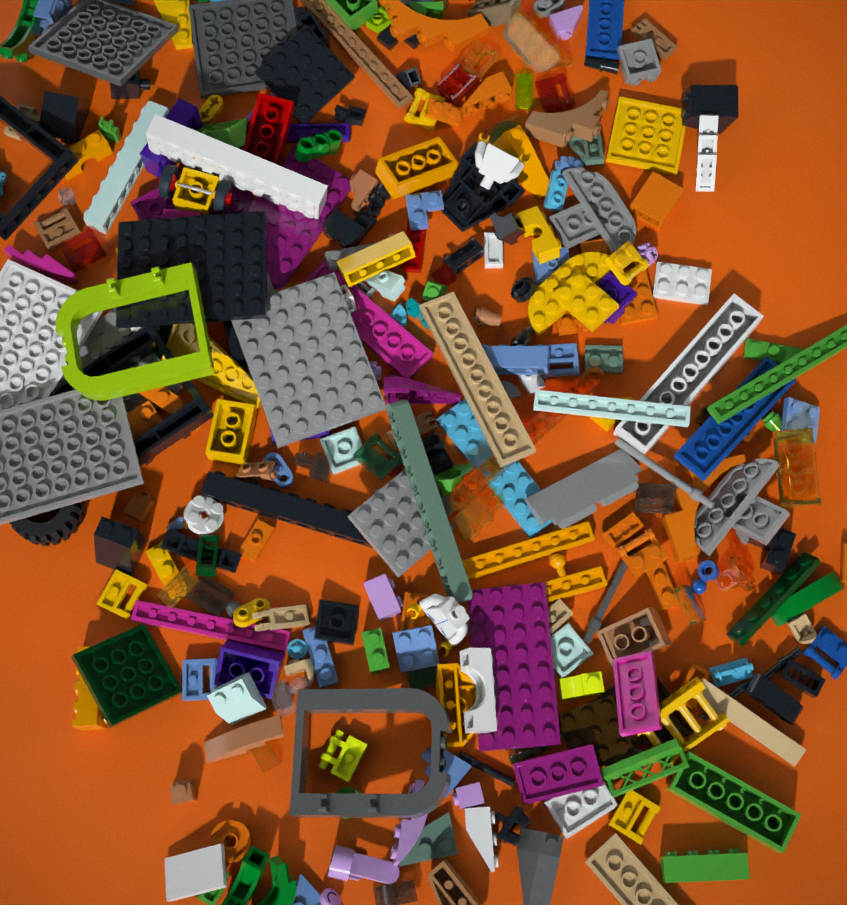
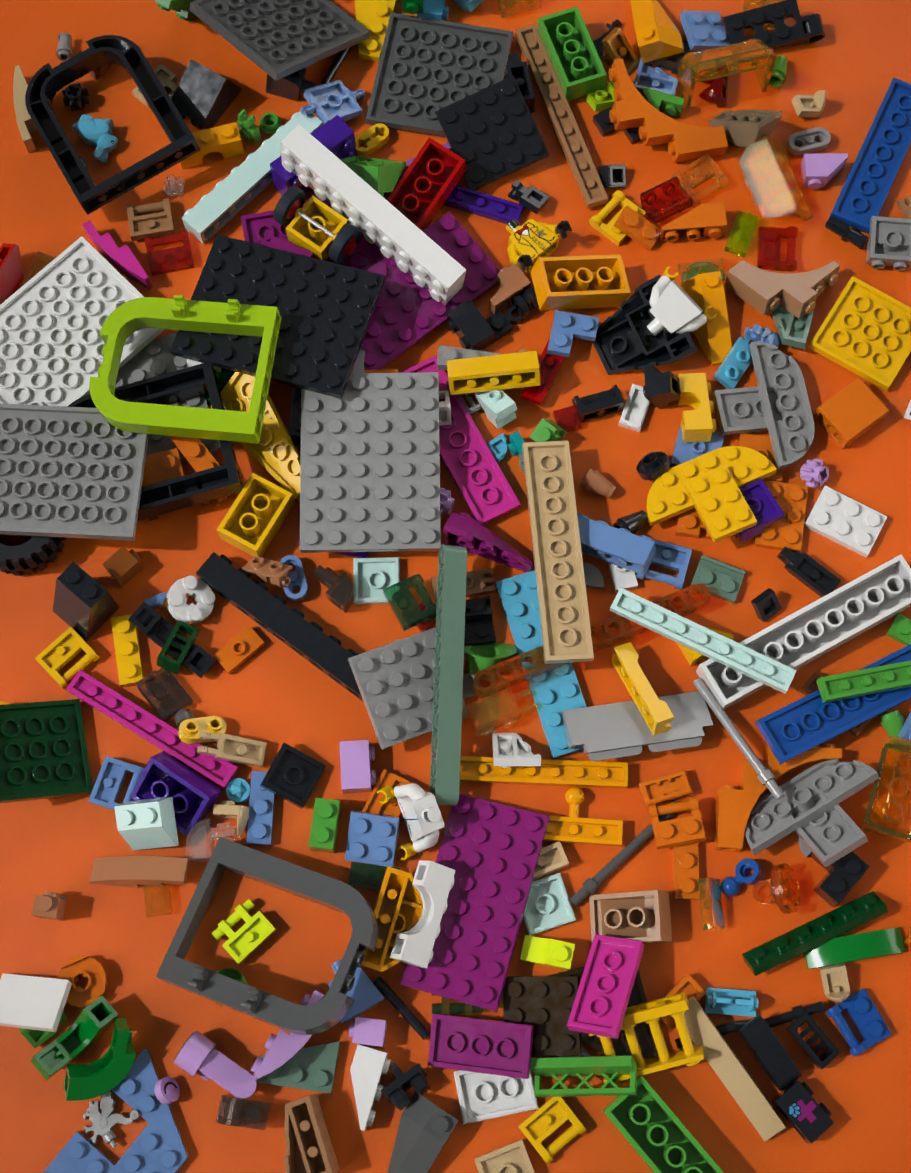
camera: 20 degrees right, 0 degrees up
(124, 118) = (269, 118): none -> bright green plate
(159, 62) = (335, 66): none -> black bar
(168, 89) = (332, 100): none -> medium blue plate
(178, 587) = (130, 672): clear yellow plate -> none
(318, 146) = (476, 220): green piece -> none
(367, 148) = (533, 241): none -> yellow torso
(499, 543) = (512, 751): none -> white wing
(594, 474) = (654, 711): none -> yellow piece
(622, 258) = (782, 468): yellow plate -> none
(647, 365) = (766, 604): none -> black plate
(655, 498) = (716, 764): clear smoke plate -> none
(669, 330) = (809, 571): none -> black hinge
(814, 733) = (803, 1111): none -> black brick

